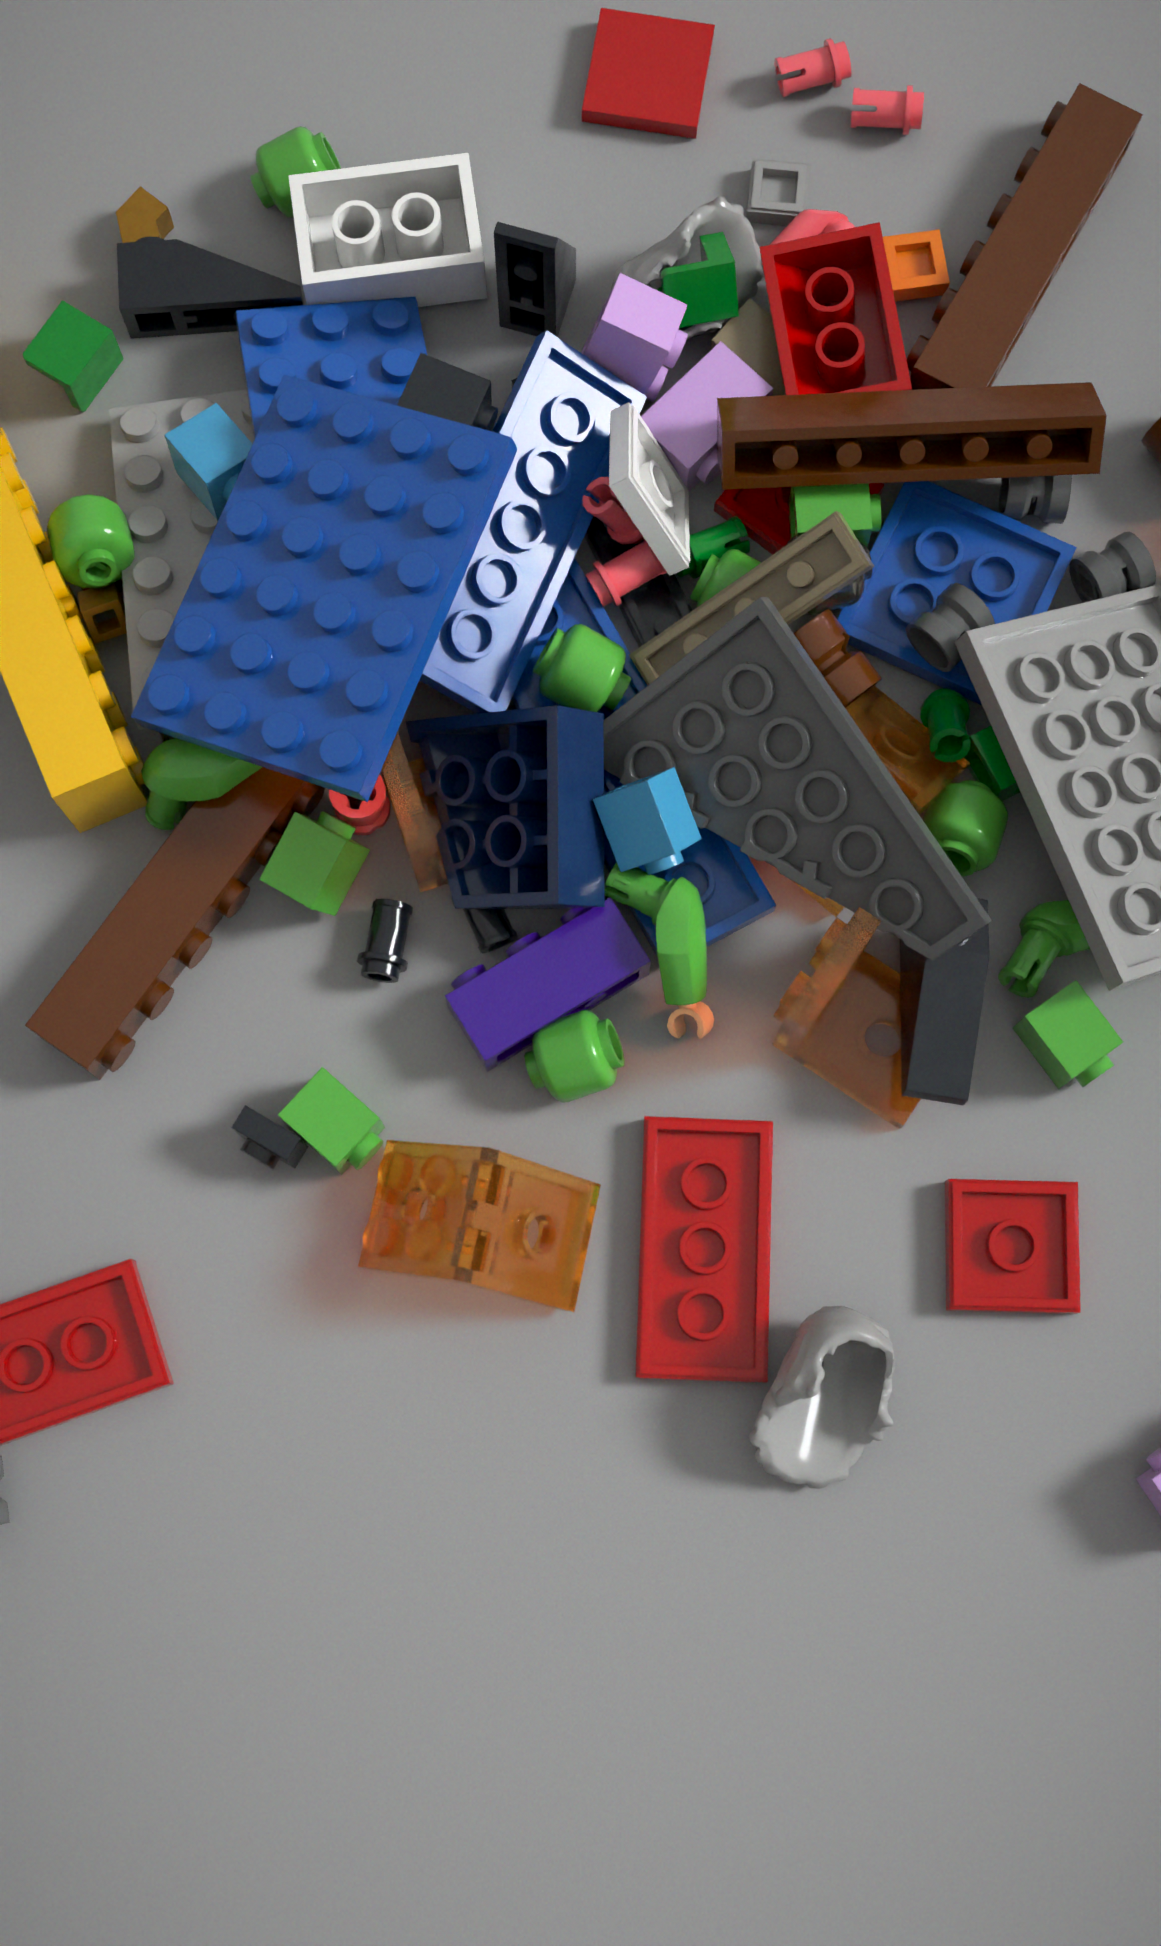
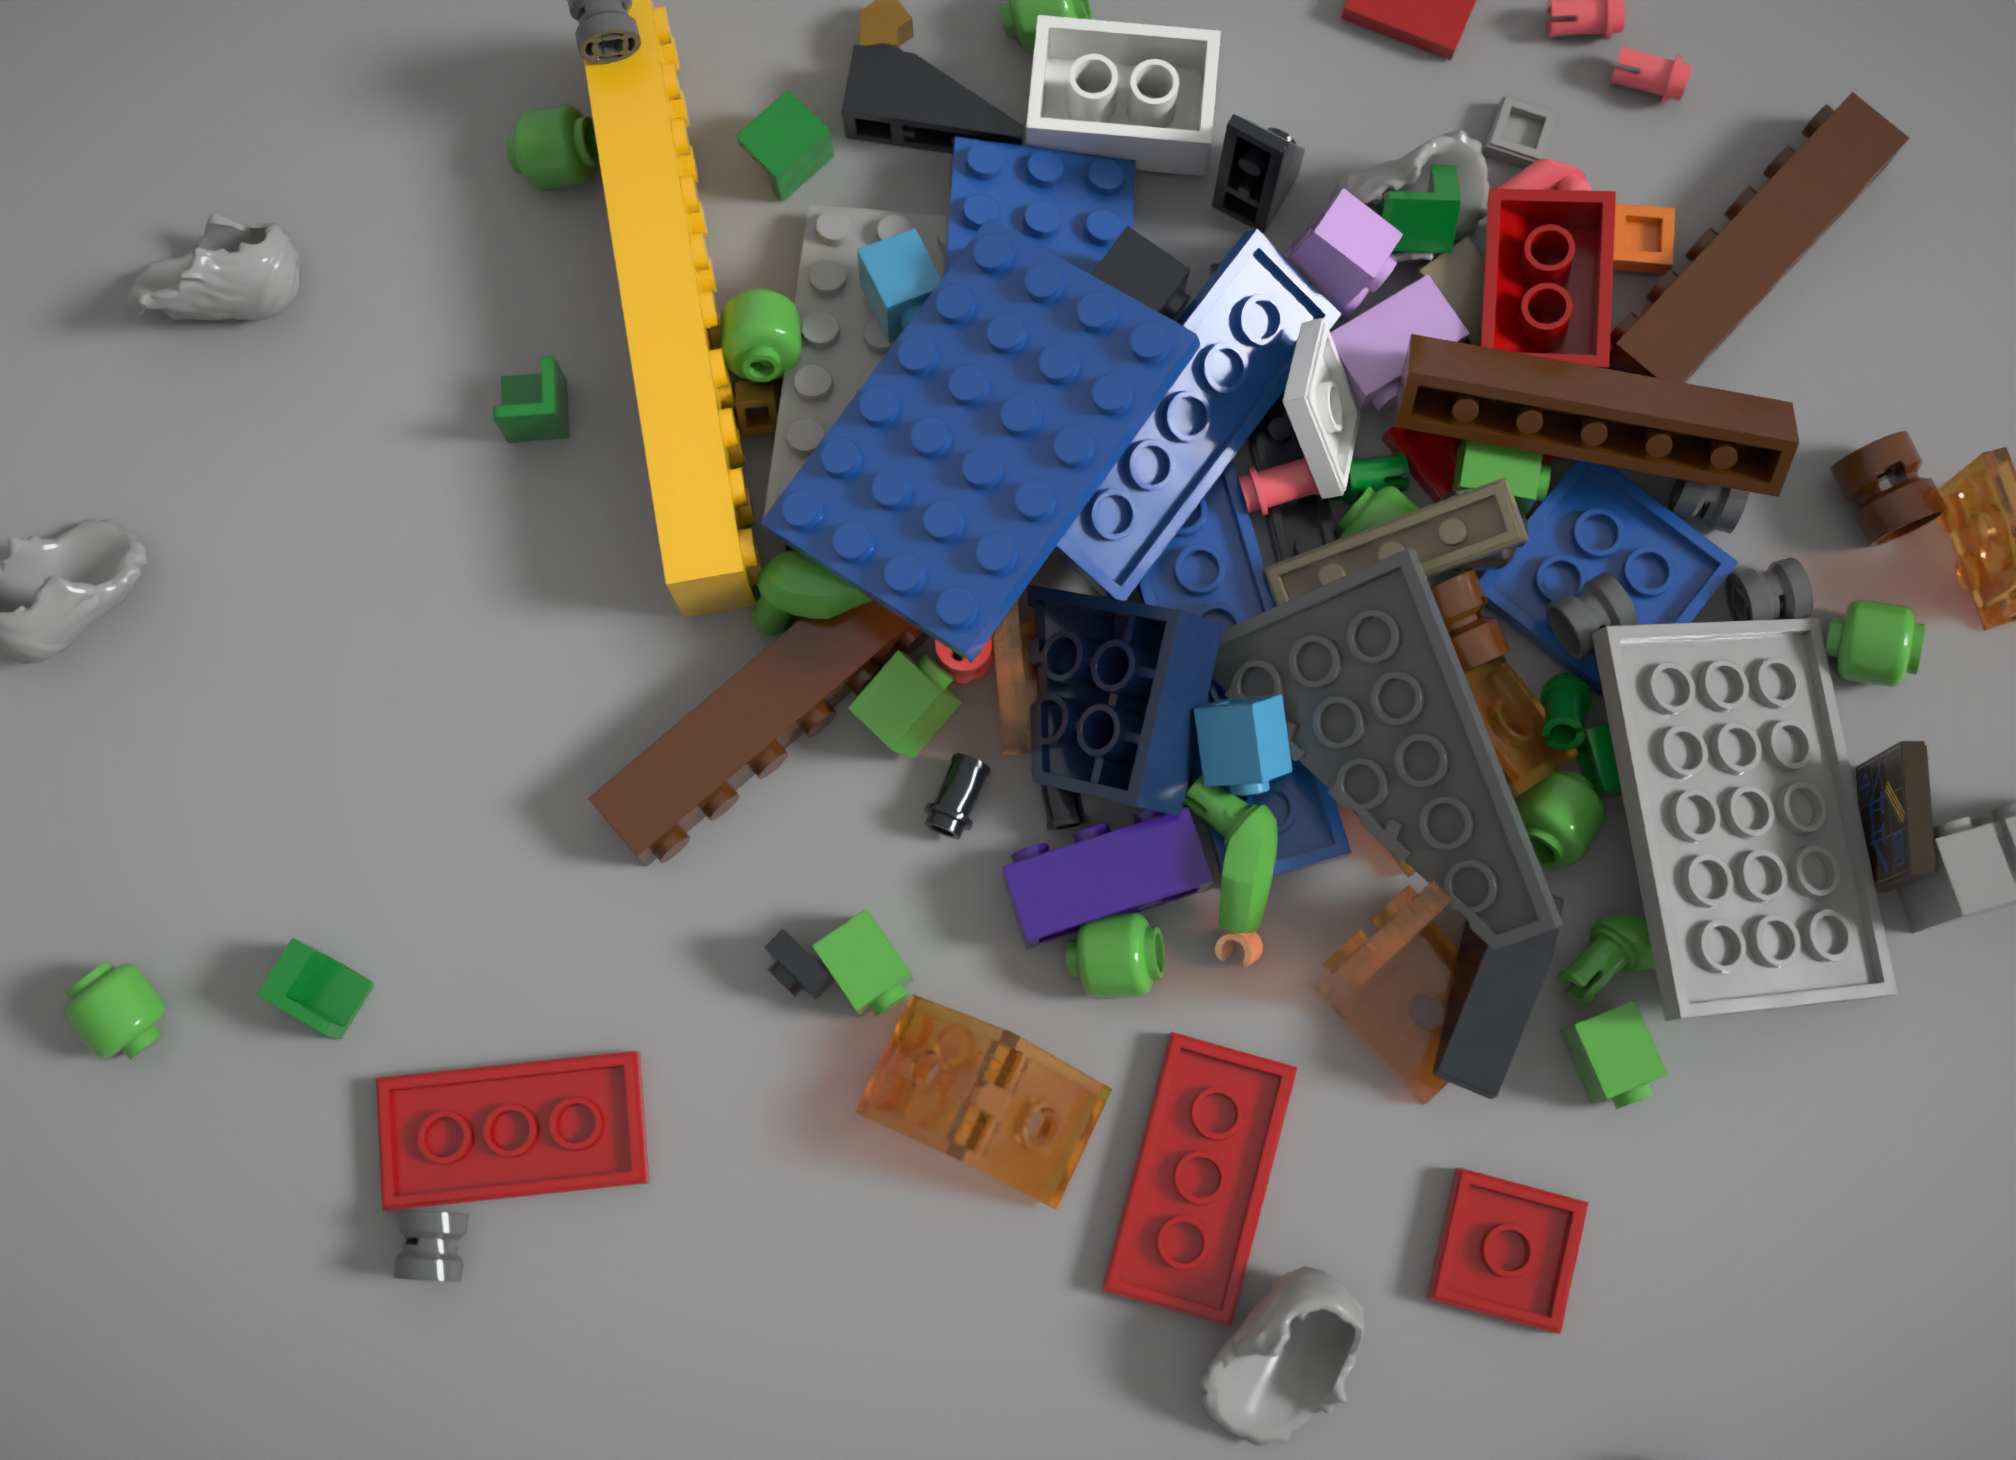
camera: 15 degrees right, 0 degrees up
(582, 669) = (1213, 574): bright green head -> none
(611, 512) = (1277, 422): coral pin -> none

